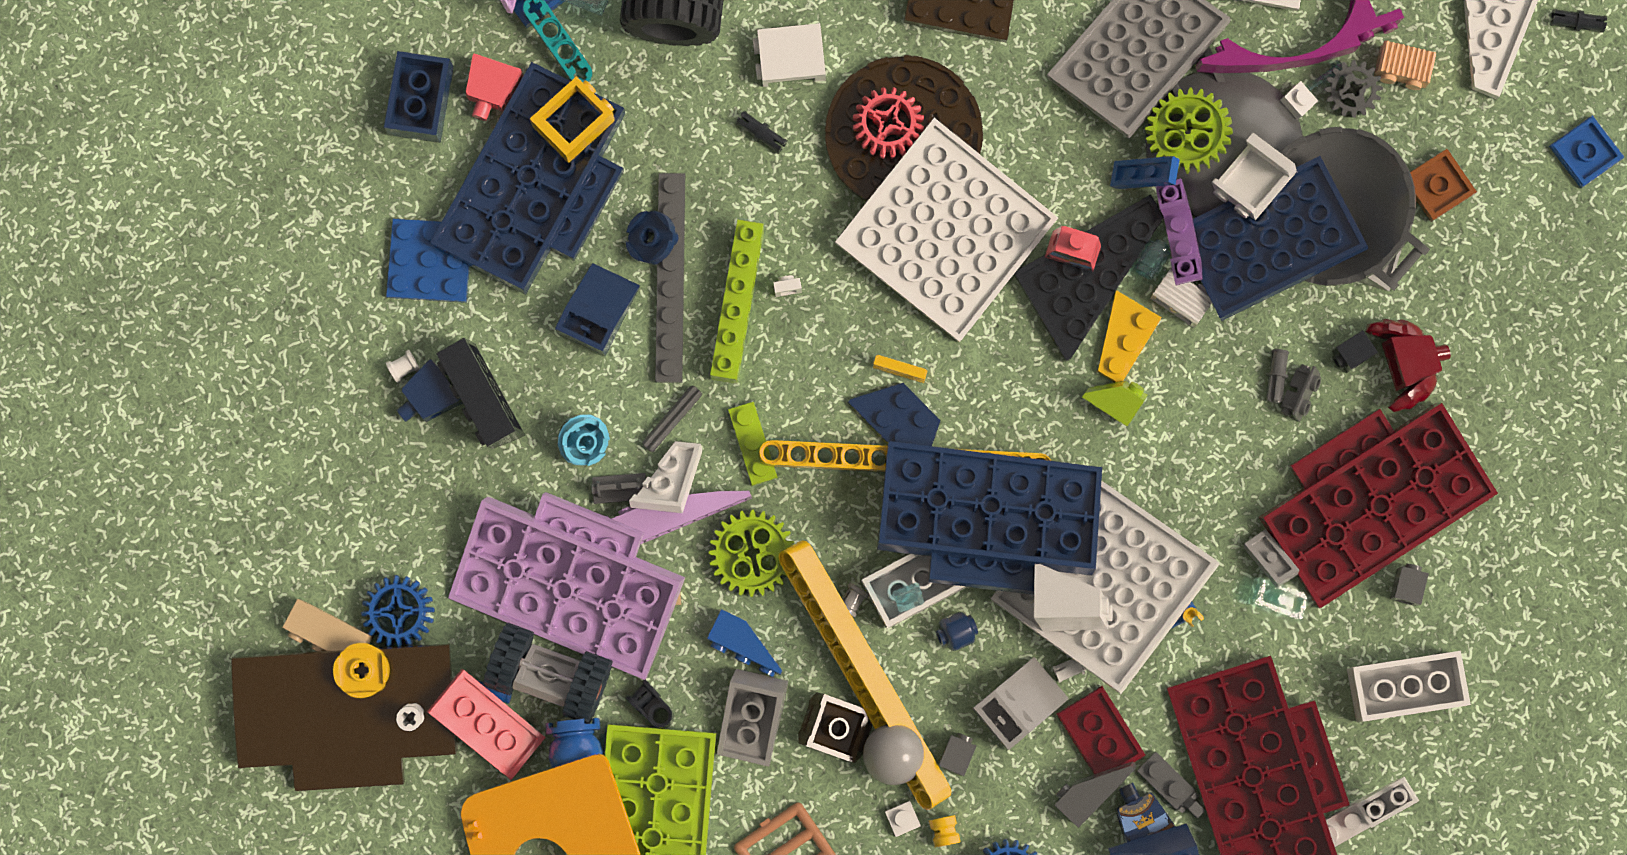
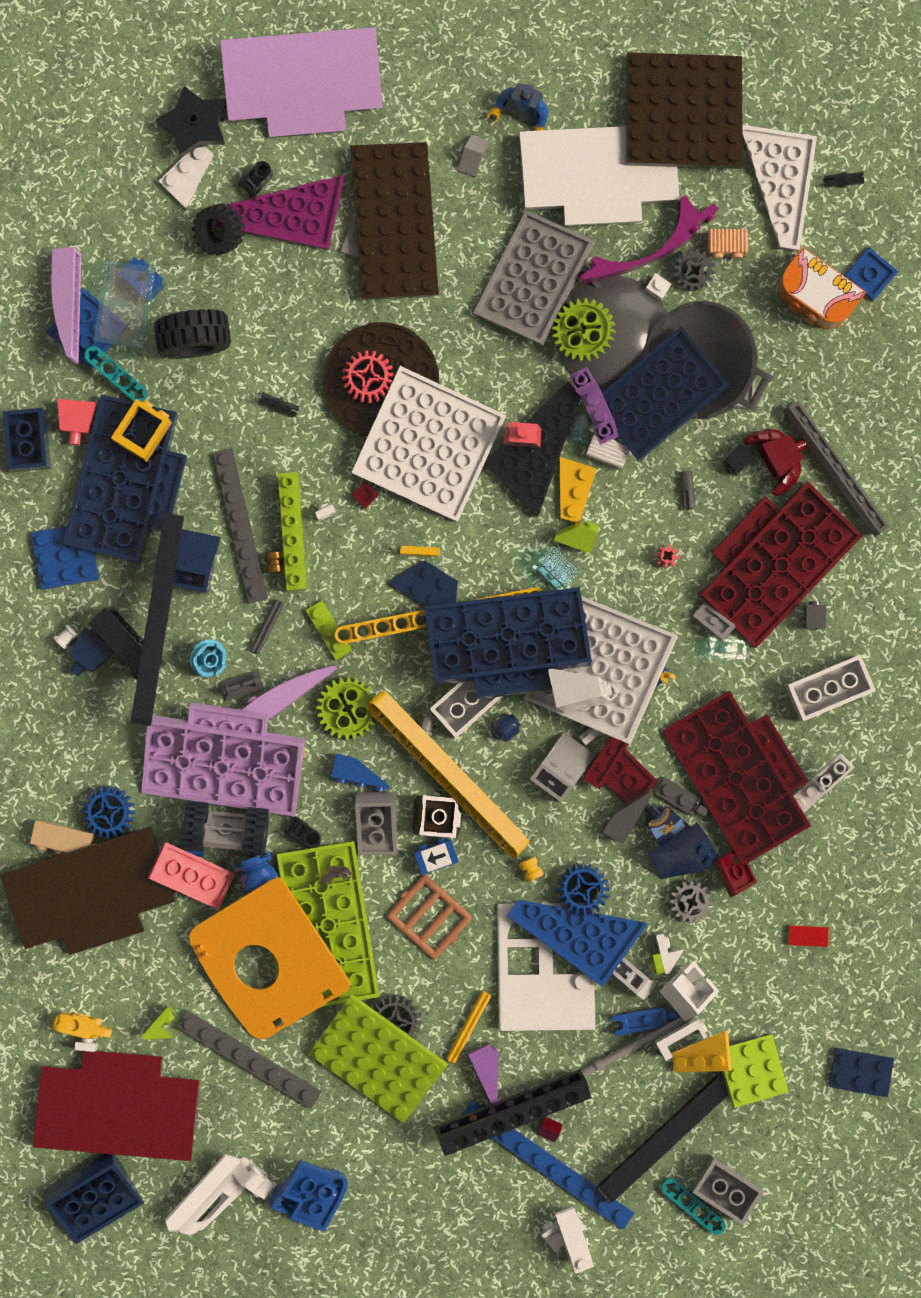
camera: 15 degrees left, 5 degrees up
(373, 680) = (88, 870): yellow plate -> none
(402, 715) = (137, 877): white bush -> none
(528, 371) = (157, 619): none -> black beam
(664, 237) = (229, 500): dark blue plate -> none
(672, 481) = (278, 671): white wing -> none
(682, 768) = (336, 872): none -> arm
(703, 336) = (274, 562): none -> pearl gold wheel
(790, 54) = (285, 343): white panel -> none
(821, 781) = (436, 856): none -> brick
(845, 277) = (365, 495): none -> dark red plate
(893, 754) = (481, 825): light grey piece -> none
(902, 818) = (499, 867): white plate -> none
(908, 597) = (465, 713): clear light blue slope -> none
(957, 754) = (527, 813): dark grey brick -> none
(1076, 436) = (556, 569): none -> clear light blue brick
(1080, 710) = (605, 762): none -> dark red plate
(1145, 172) = (559, 368): blue plate -> none
(1230, 449) = (661, 555): none -> coral gear
(1254, 178) = (638, 353): white panel -> none
(1306, 382) = (709, 490): dark grey hinge -> none
(1441, 185) = (771, 324): dark orange plate -> none
(1482, 395) = (836, 469): none -> dark grey plate
(1512, 155) = (818, 291): none -> brick

